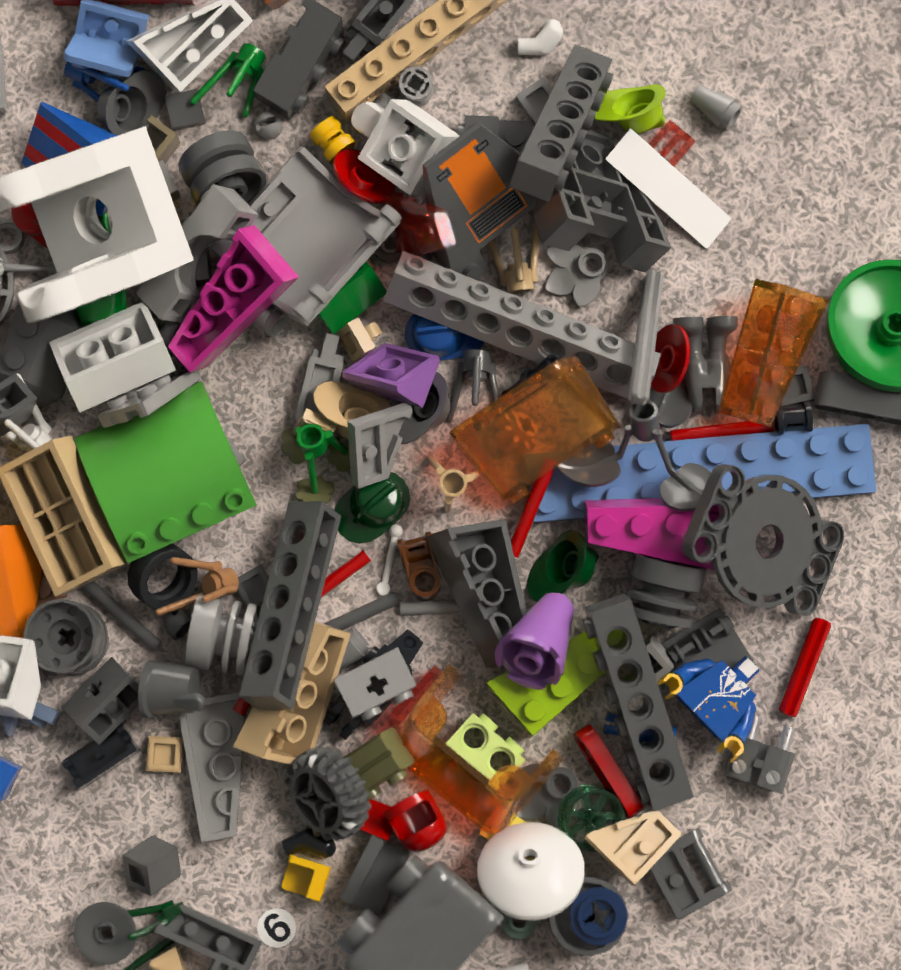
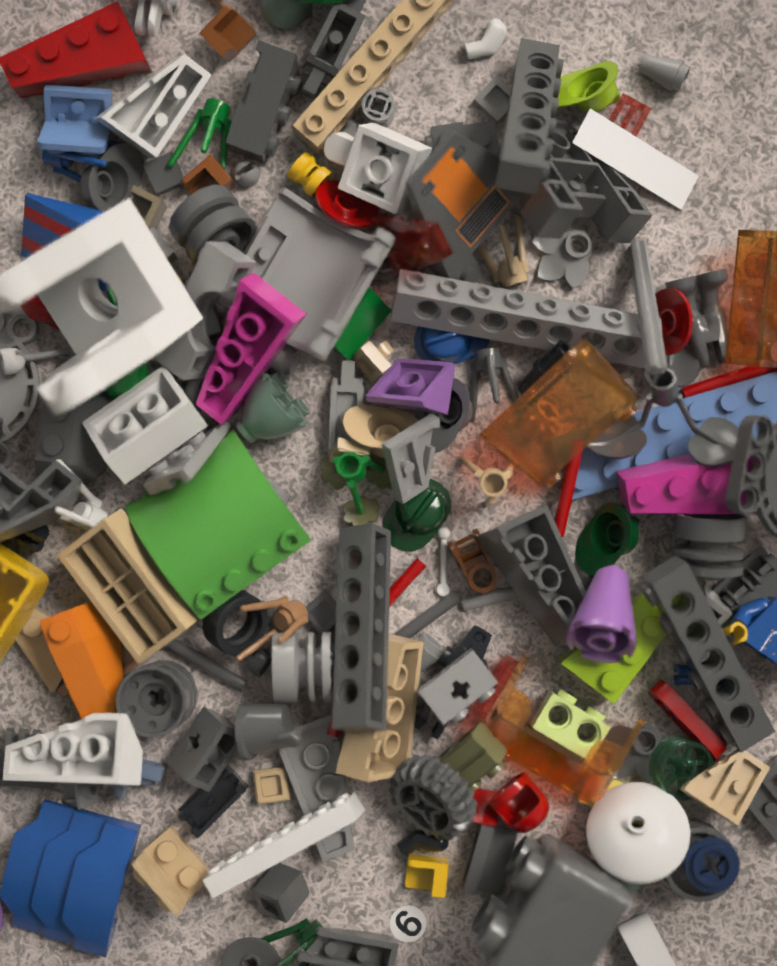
camera: 10 degrees left, 5 degrees up
(45, 818) = (170, 870): none -> tan bracket
(162, 813) = (282, 845): none -> white piece
(227, 118) = (207, 174): none -> dark orange panel
(243, 369) = (271, 410): none -> sand green piece

